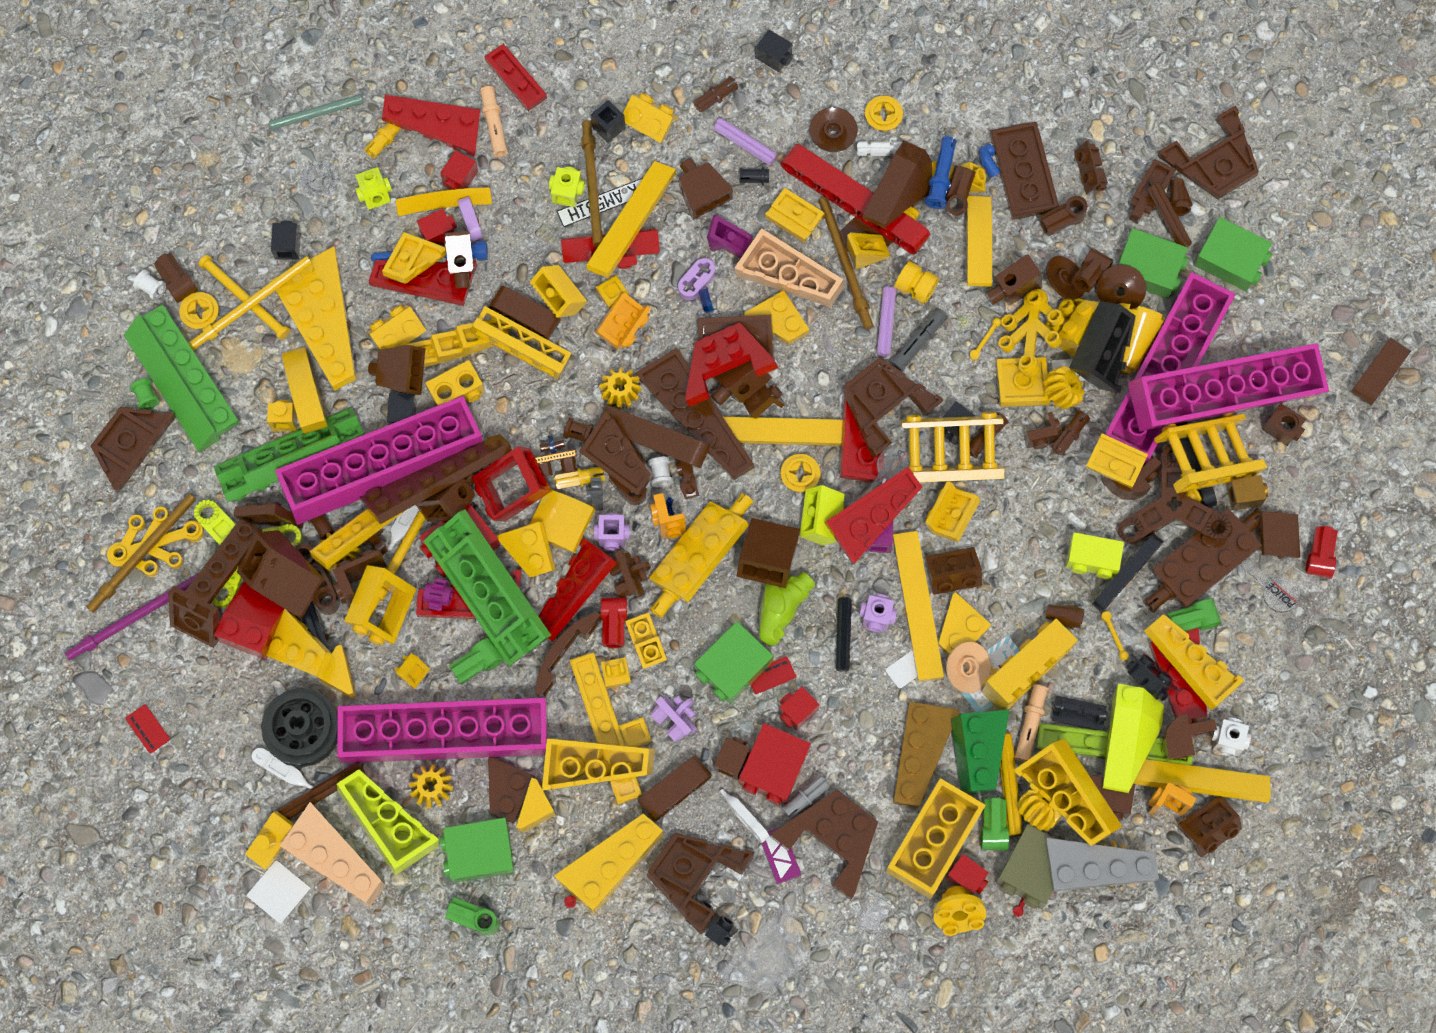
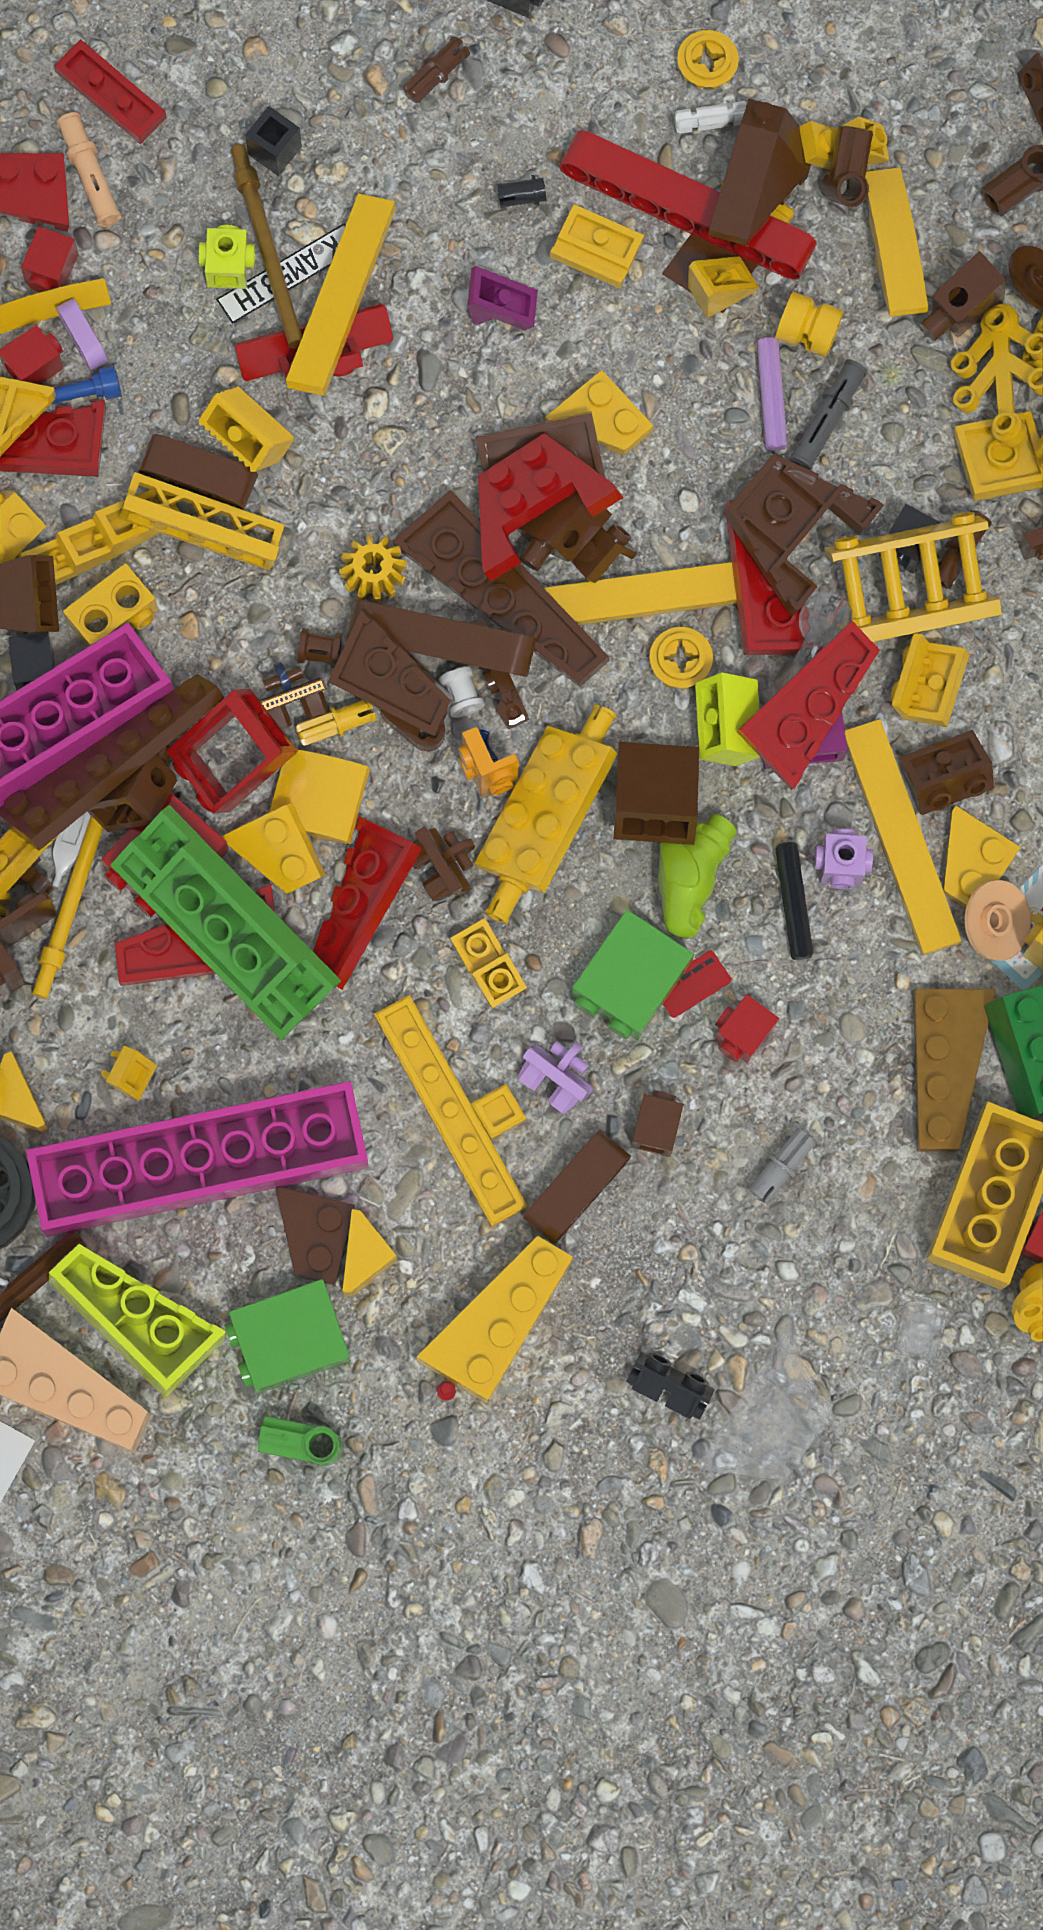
camera: 15 degrees left, 5 degrees up
(365, 600) = (38, 976): yellow window -> none
(422, 784) = (181, 1249): yellow gear -> none
(438, 594) = (149, 946): magenta gear -> none
(459, 246) = (74, 382): torso -> none
(482, 657) = (236, 1033): bright green piece -> none
(583, 628) = (385, 960): reddish brown slope -> none
(583, 762) = (435, 1171): yellow wedge -> none
(595, 493) = (366, 744): dark grey plate -> none
(611, 290) = (331, 416): yellow tile -> none
(612, 523) = (403, 786): lavender brick -> none
(613, 616) = (431, 931): red piece -> none
(615, 672) = (450, 1021): yellow tile -> none
(622, 322) = (357, 461): light orange bracket -> none
(649, 117) = (337, 123): yellow bracket -> none
(685, 867) = (616, 1309): reddish brown wing -> none
(700, 282) = (453, 369): lavender beam -> none
(703, 188) = (443, 225): reddish brown torso -> none
(706, 300) = (482, 405): clear blue tile -> none
(745, 141) = (496, 138): lavender axle -> none
(746, 817) = (695, 1213): white piece -> none
(774, 764) = (725, 1123): red brick -> none
(782, 862) = (757, 1262): magenta tile -> none
(784, 268) = (598, 335): light nougat wedge -> none
(833, 120) = (633, 82): reddish brown dish -> none
(839, 827) = (844, 1204): reddish brown wing -> none
(861, 304) = (726, 372): pearl gold bar -> none
(903, 670) = (895, 941): white sticker -> none
(940, 181) = (819, 157): blue pin -> none
(974, 354) = (919, 424): yellow hinge -> none
(985, 153) = (885, 113): blue arm -> none
(1024, 170) = (944, 116): reddish brown tile -> none

